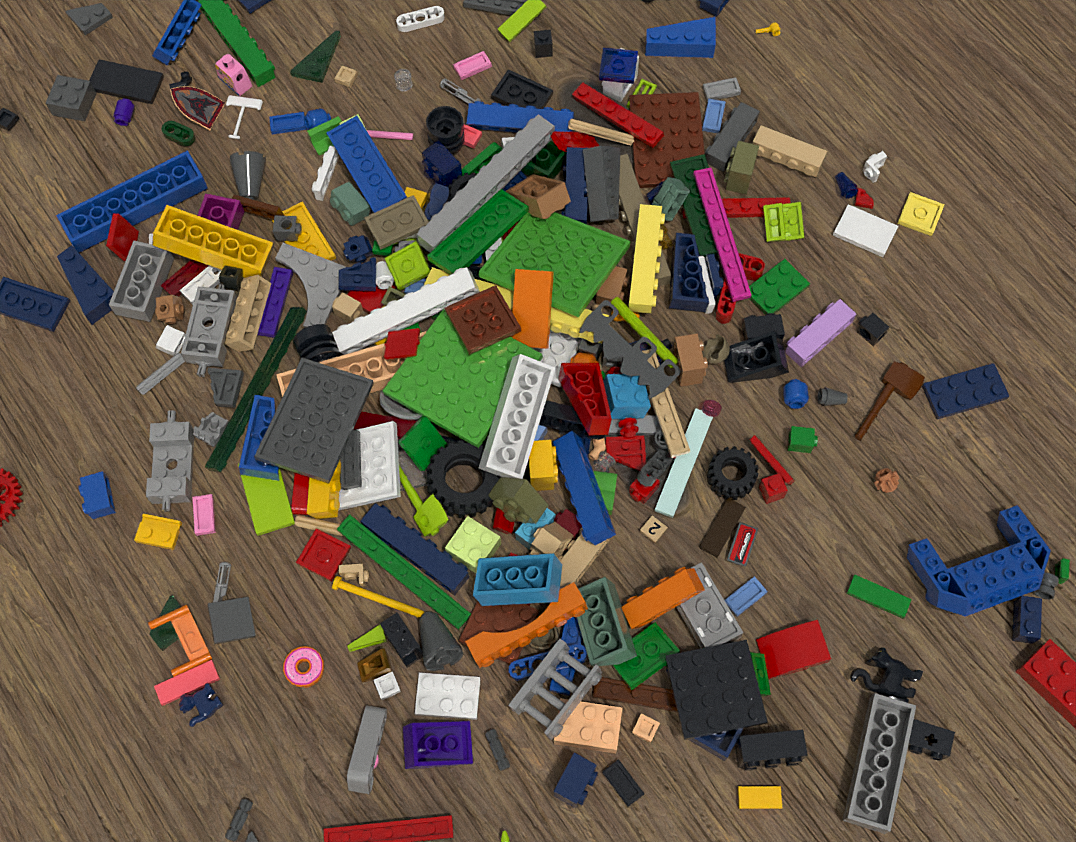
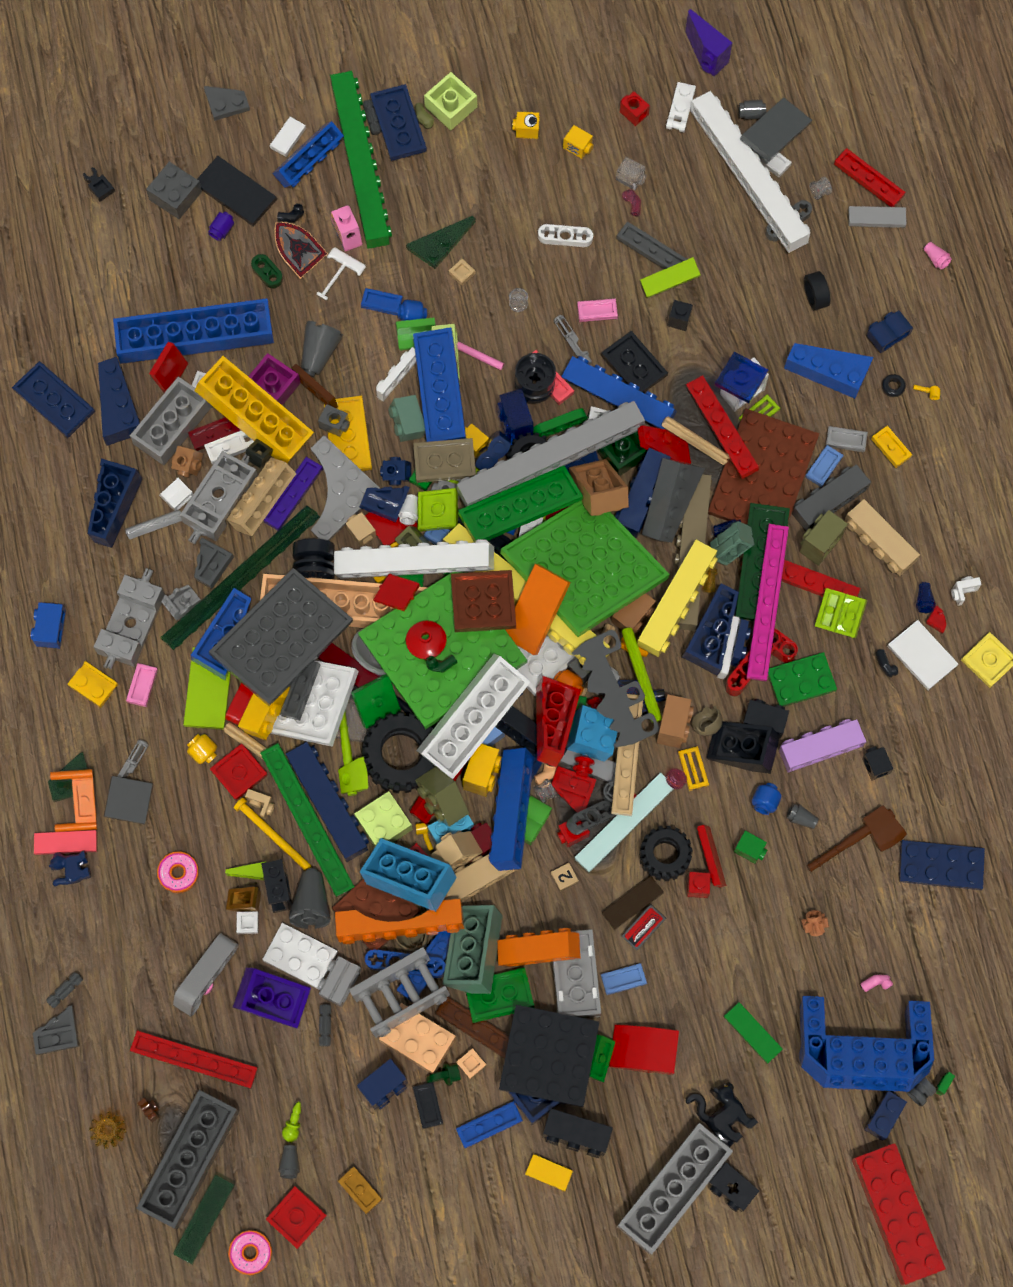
camera: 20 degrees right, 5 degrees up
(115, 366) = (112, 501): none -> dark blue wedge
(153, 25) = (288, 136): none -> white tile
(282, 548) = (202, 749): none -> yellow head
(449, 378) = (425, 648): none -> red dish
(467, 388) = (440, 666): none -> dark green arm
(494, 703) = (339, 981): none -> light grey brick
(510, 538) = (421, 829): none -> yellow hand
(629, 746) = (449, 1074): none -> dark green piece
(686, 777) = (489, 1124): none -> blue tile
(713, 396) = (697, 785): none -> yellow tile
(739, 30) = (893, 392): none -> black piece
(761, 81) = (891, 446): none -> yellow plate
(844, 252) = (884, 664): none -> black arm
(960, 508) = (876, 980): none -> bright pink arm

